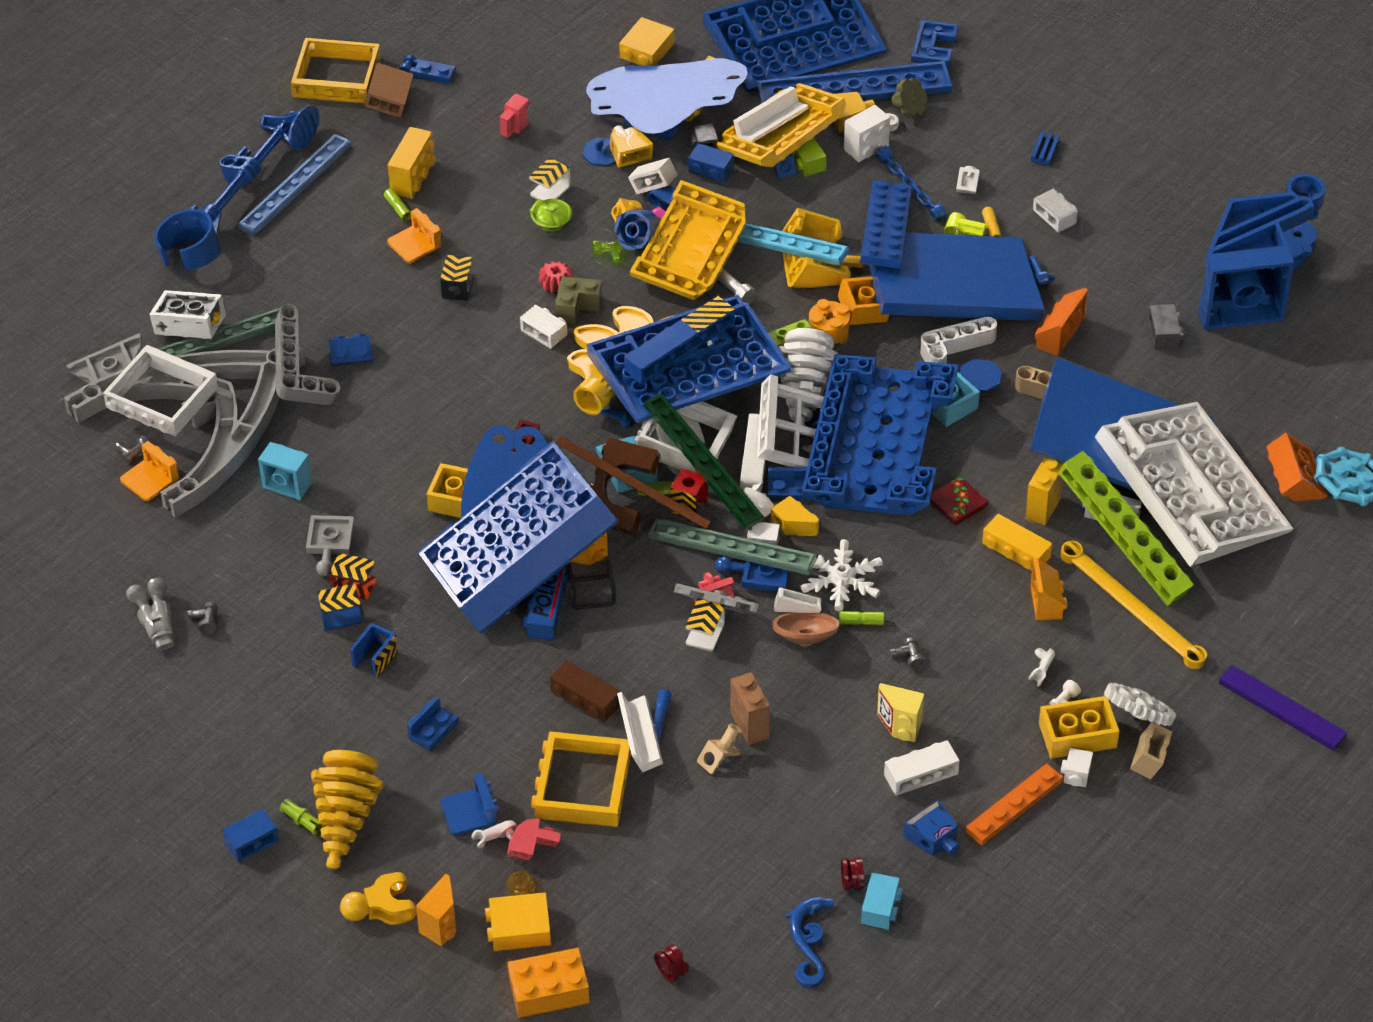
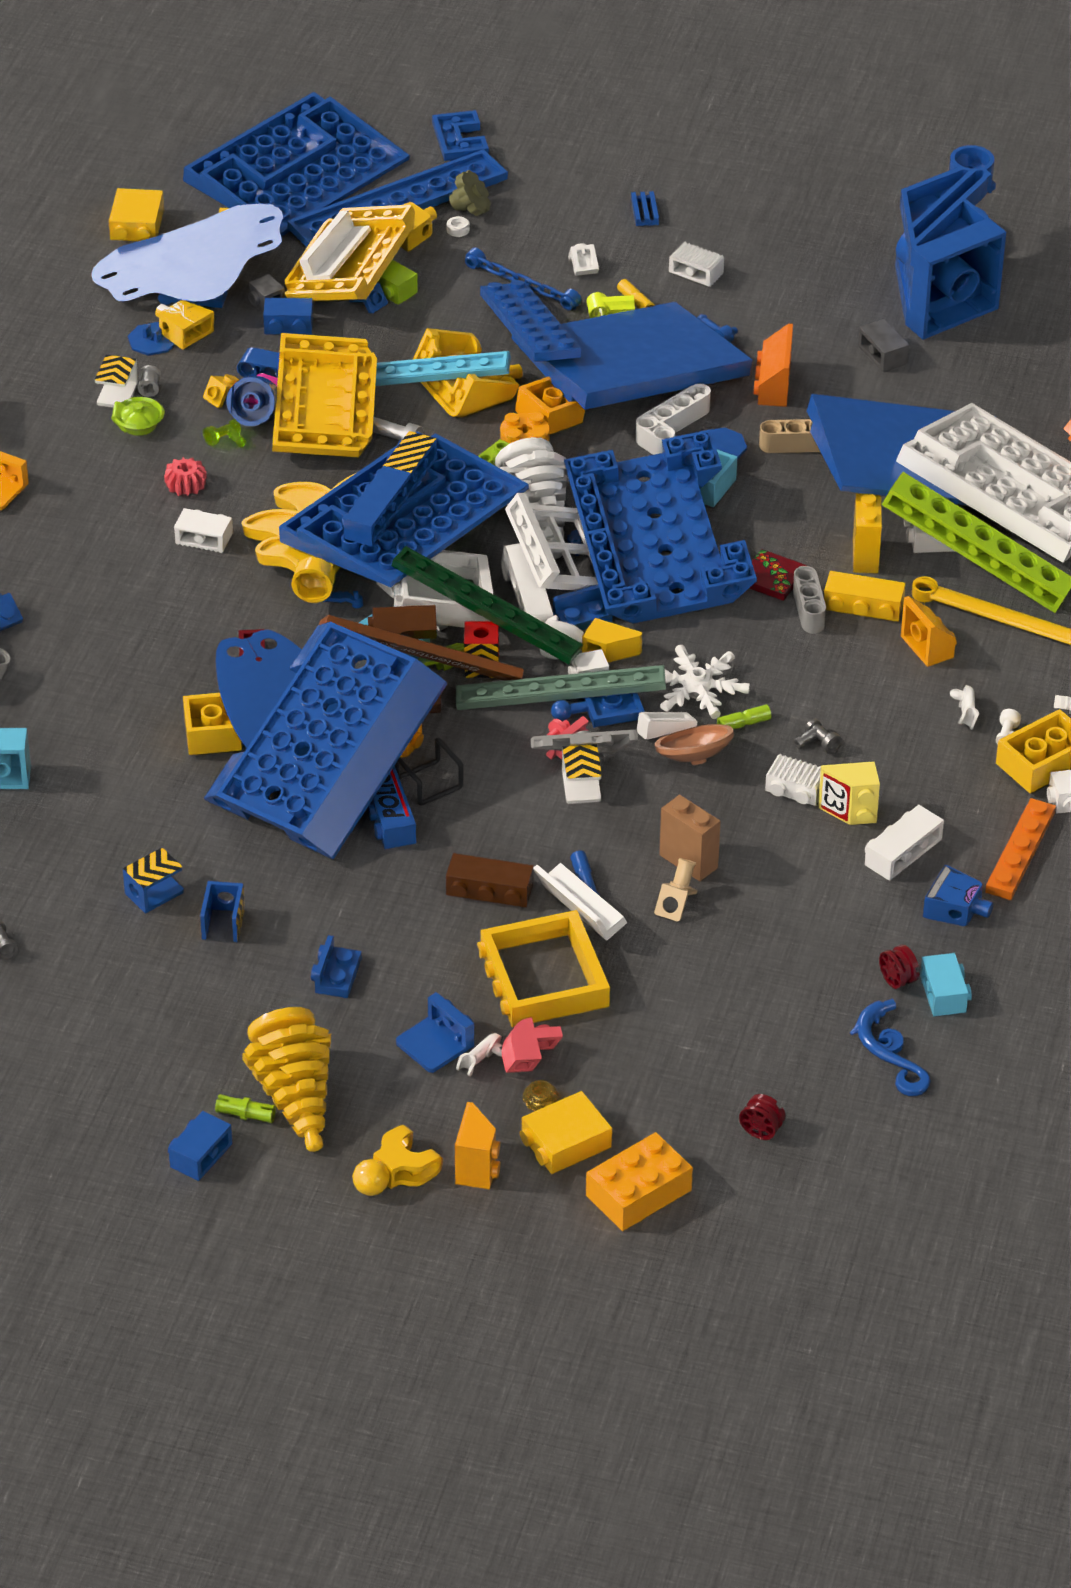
camera: 25 degrees left, 5 degrees down
(329, 536) = (93, 813): light grey plate -> none
(353, 570) = (147, 836): piece -> none
(455, 278) = (72, 507): piece -> none
(514, 116) = (34, 324): coral piece -> none
(573, 190) = (149, 378): none -> light grey bush
(577, 295) = (224, 487): olive brick -> none
(653, 176) = (235, 343): white brick -> none
(864, 683) = (794, 780): none -> white brick
(866, 133) = (447, 240): white brick -> none
(971, 532) = (809, 599): none -> light grey beam

